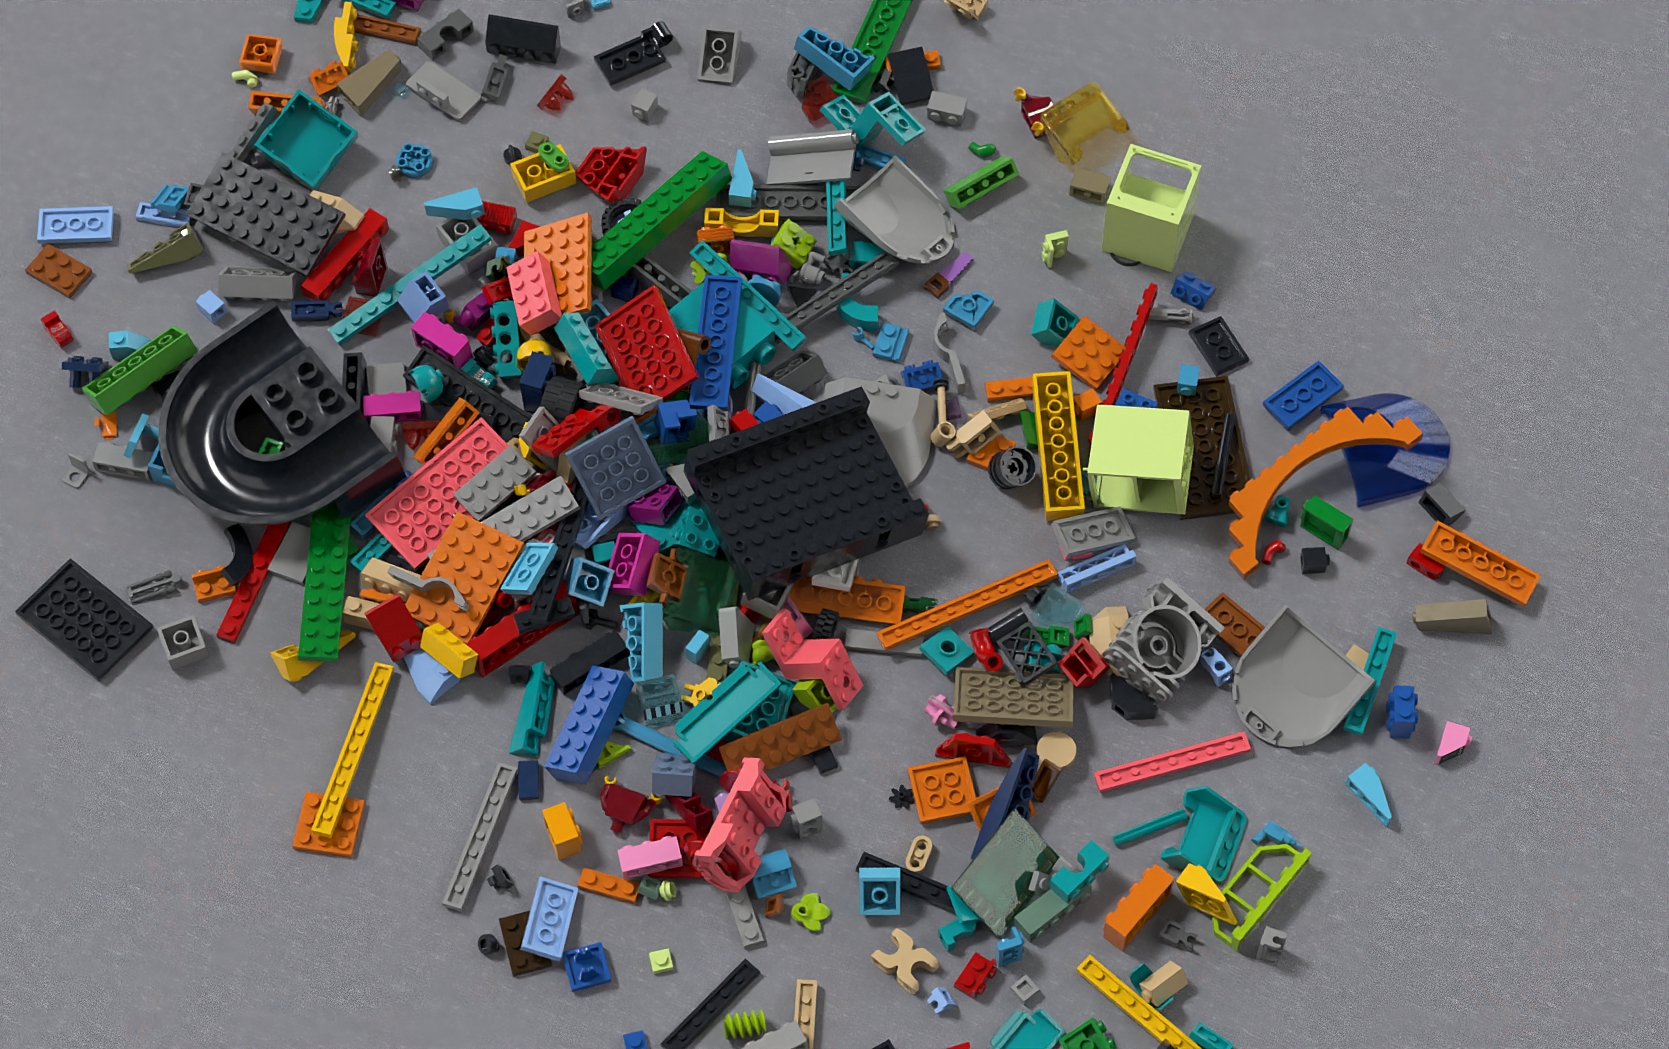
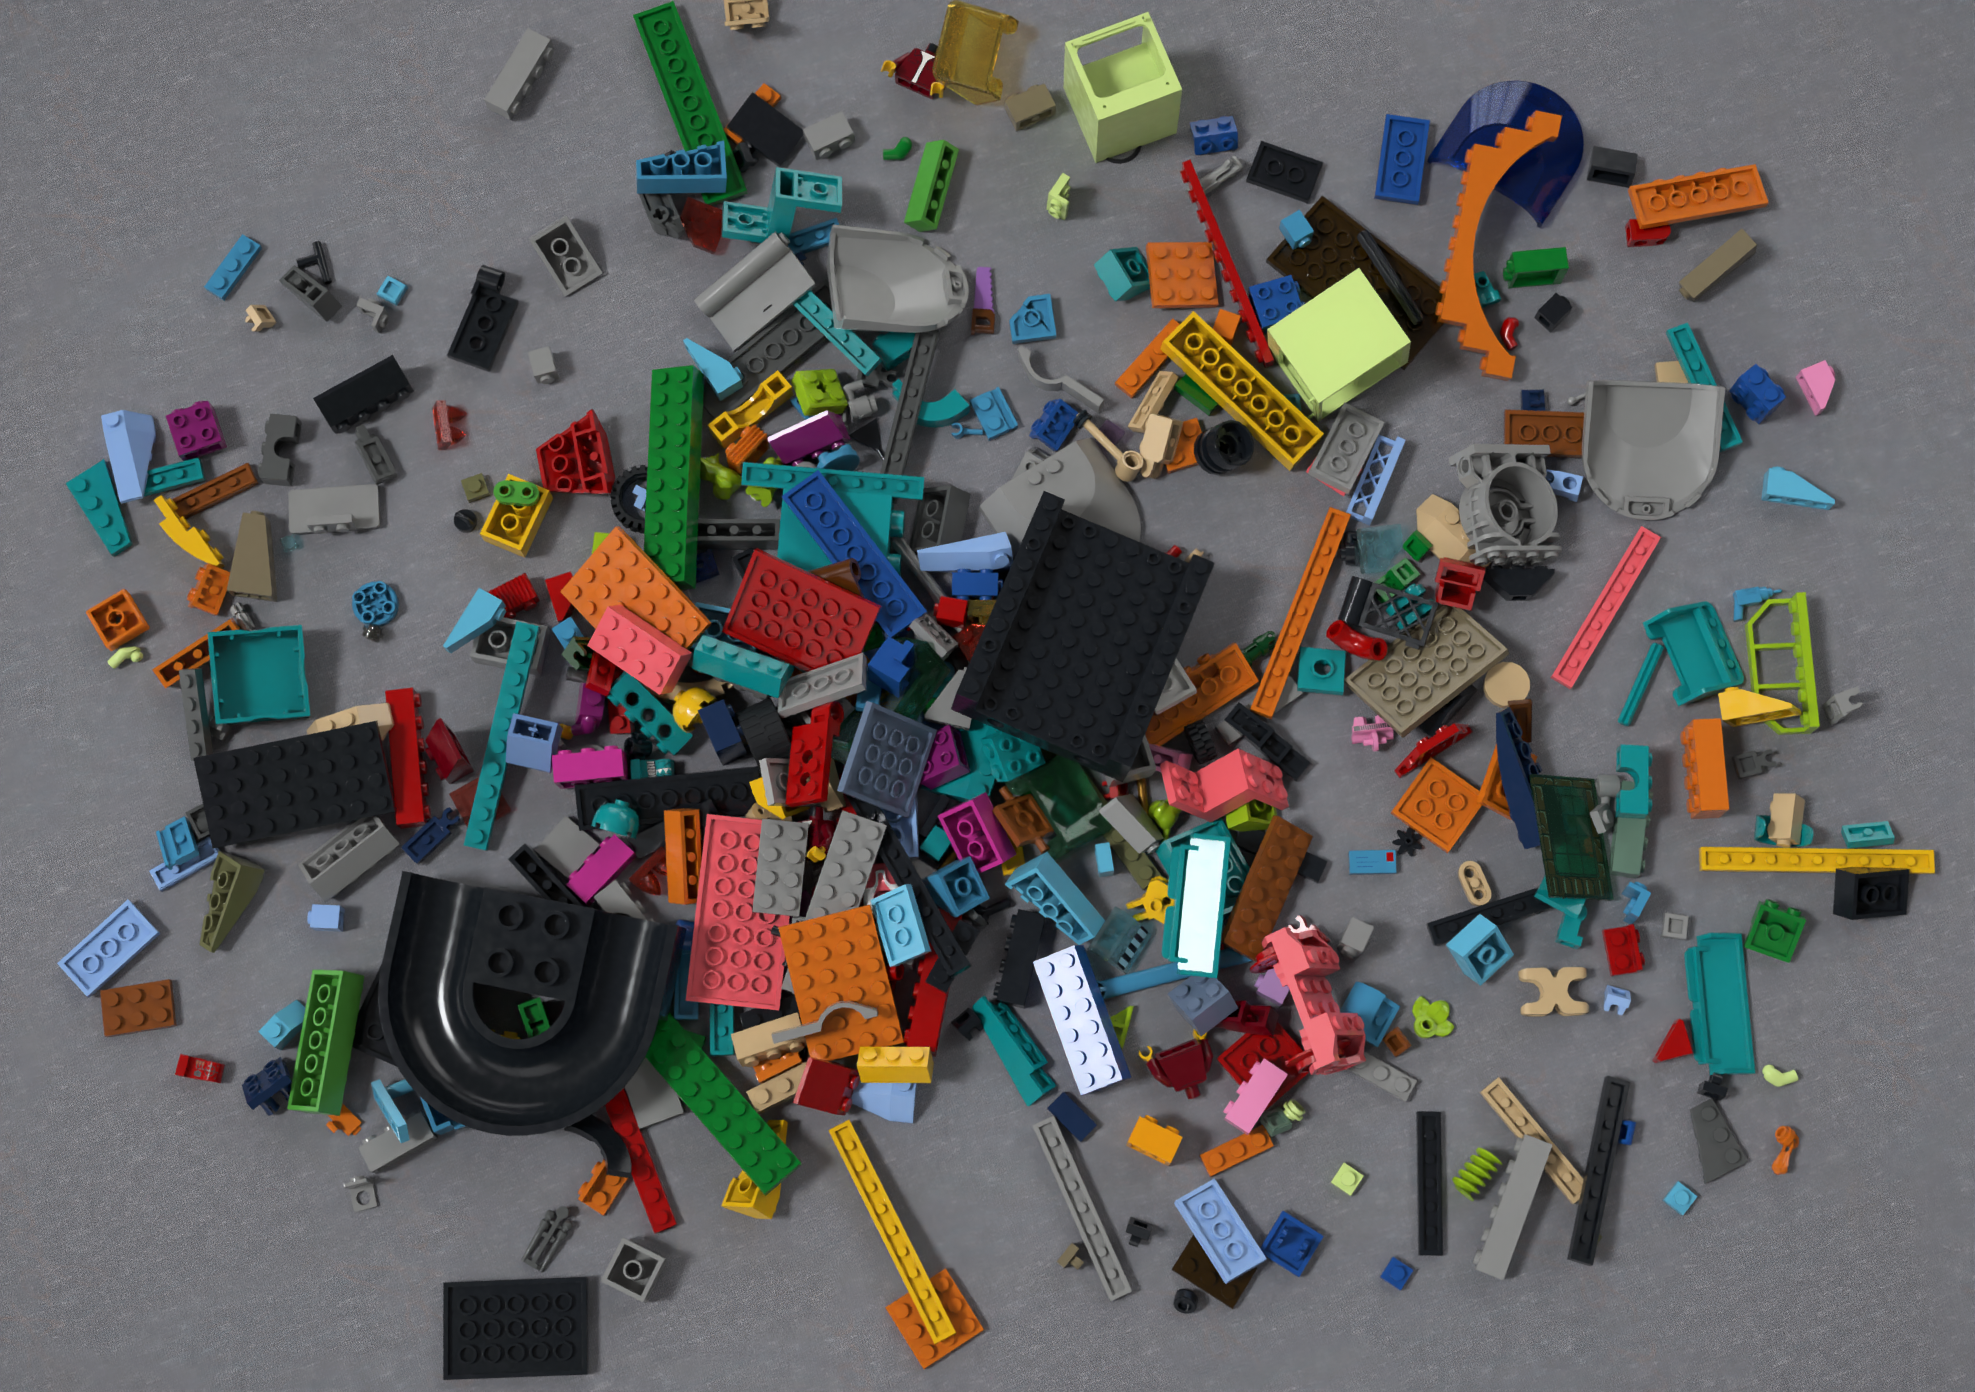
camera: 40 degrees left, 15 degrees up
(443, 857) = (1070, 1257): none -> dark tan tile
(685, 243) = (724, 479): none -> lime animal
(866, 789) = (1372, 862): none -> dark azure tile
(869, 663) = (1267, 741): none -> black slope
(1249, 602) = (1532, 400): none -> dark blue tile

